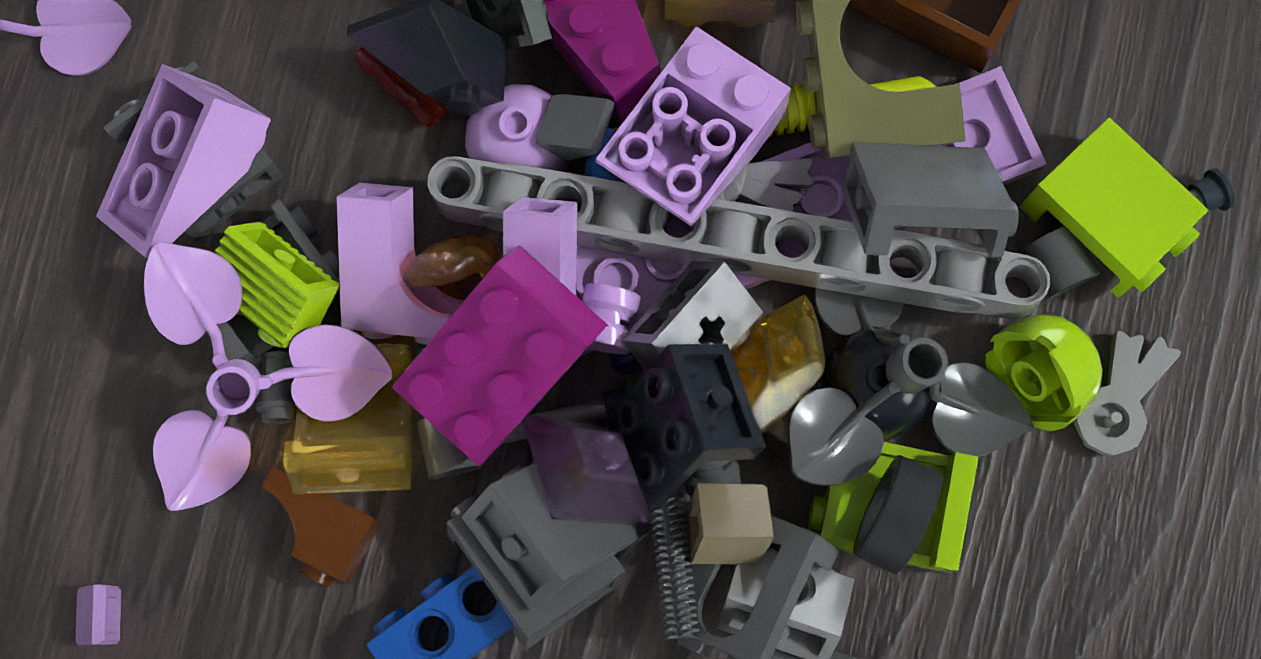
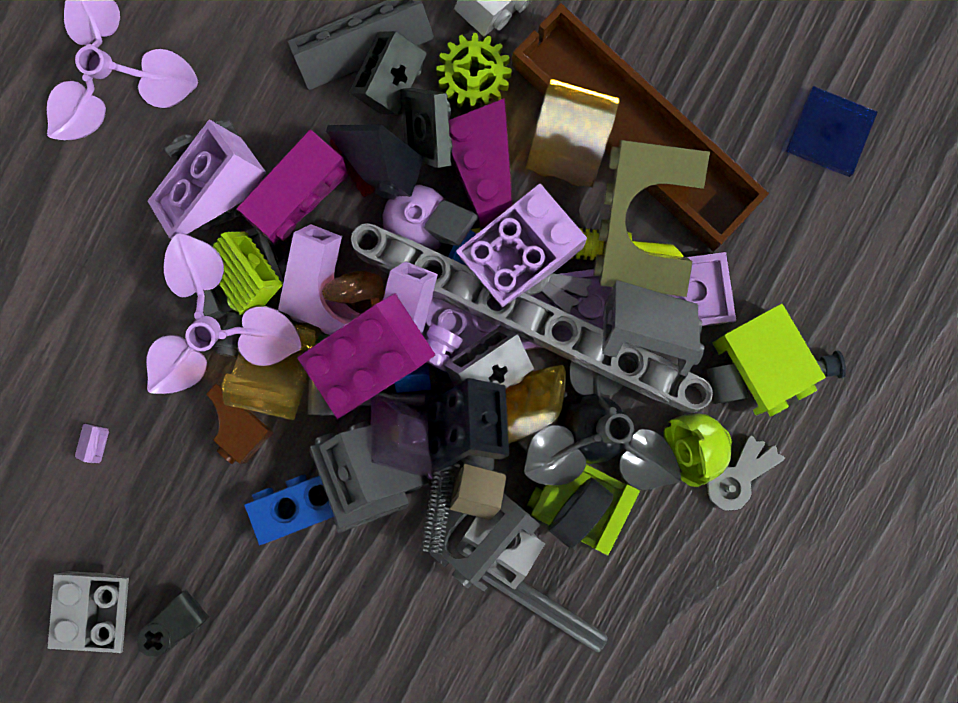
camera: 15 degrees right, 5 degrees up
(319, 132) = (294, 187): none -> magenta wedge
(581, 380) = (415, 381): none -> blue slope

